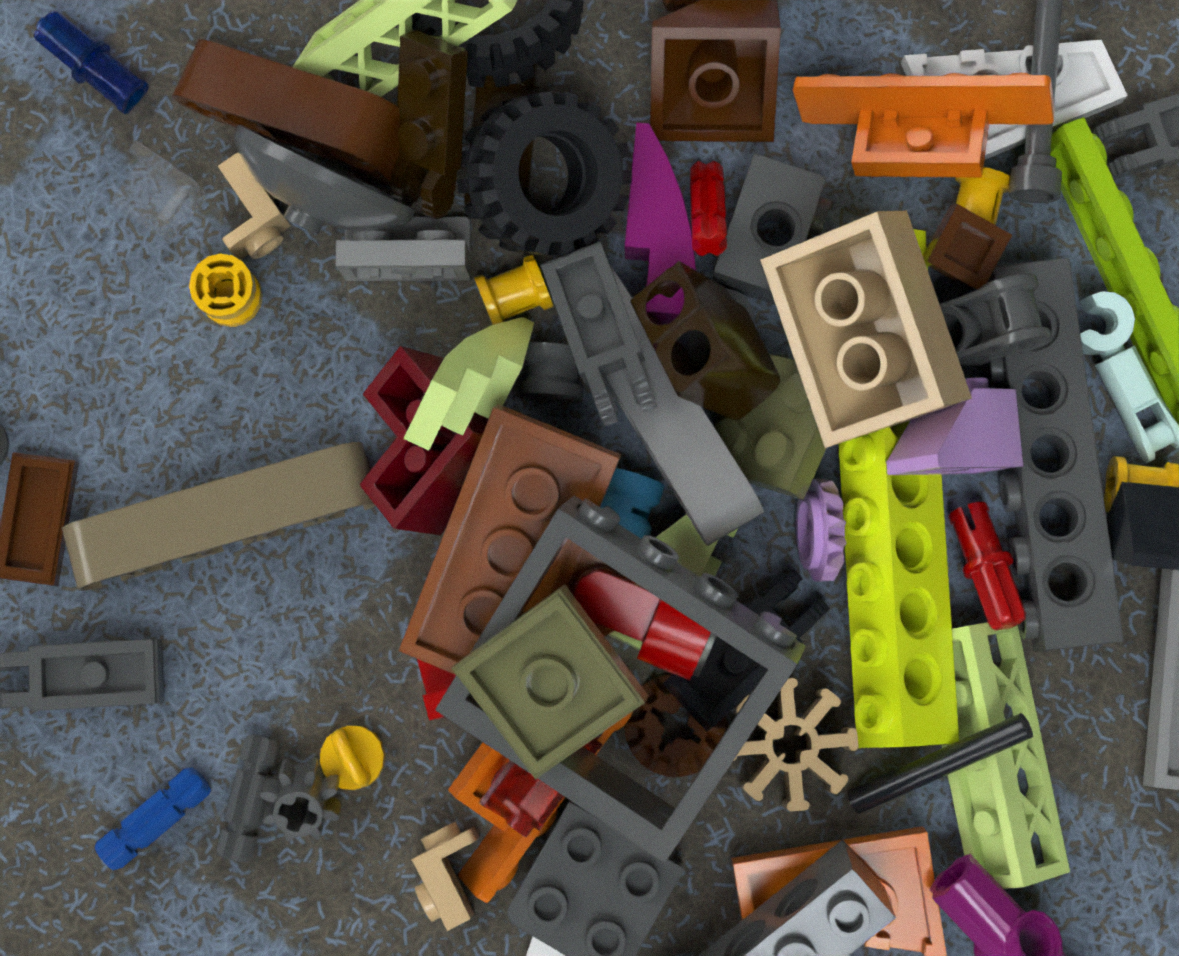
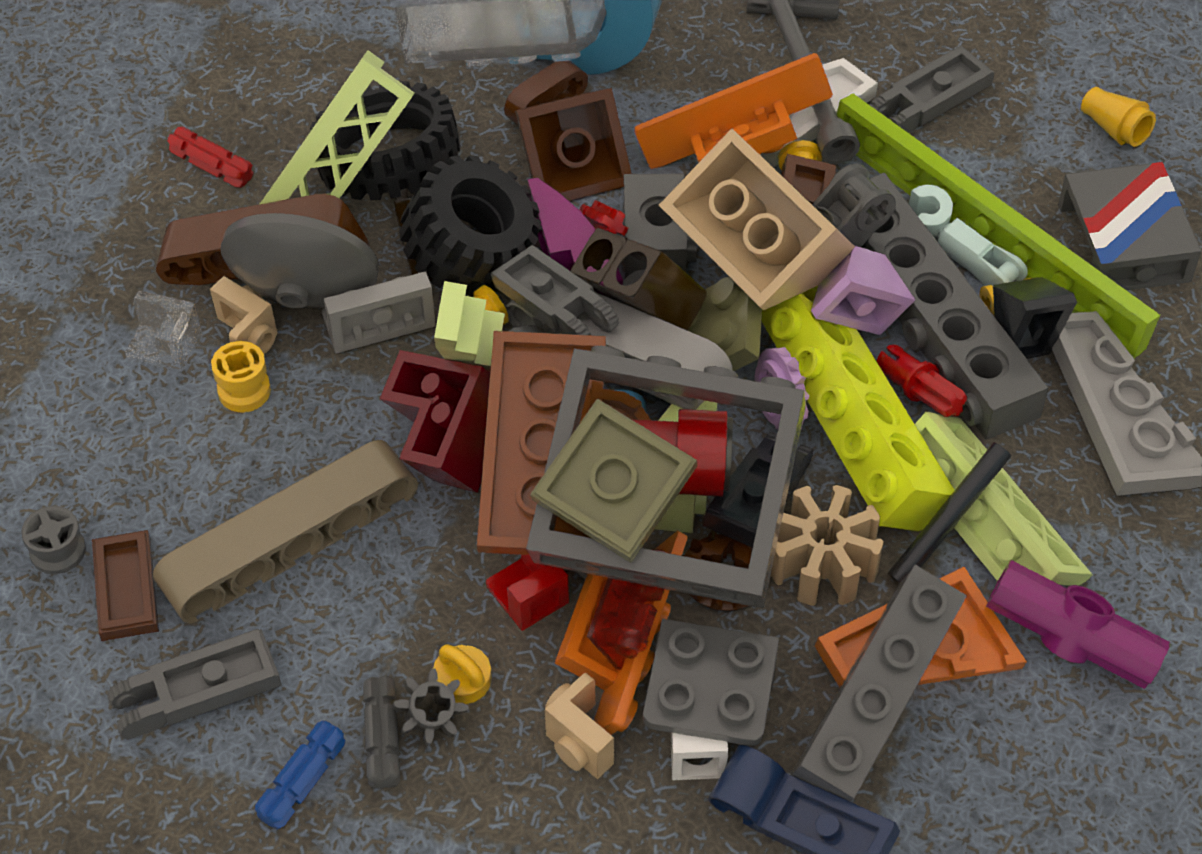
camera: 25 degrees left, 30 degrees down
(90, 61) = (81, 269): clear blue axle -> none
(430, 122) = (372, 197): dark brown hinge -> none

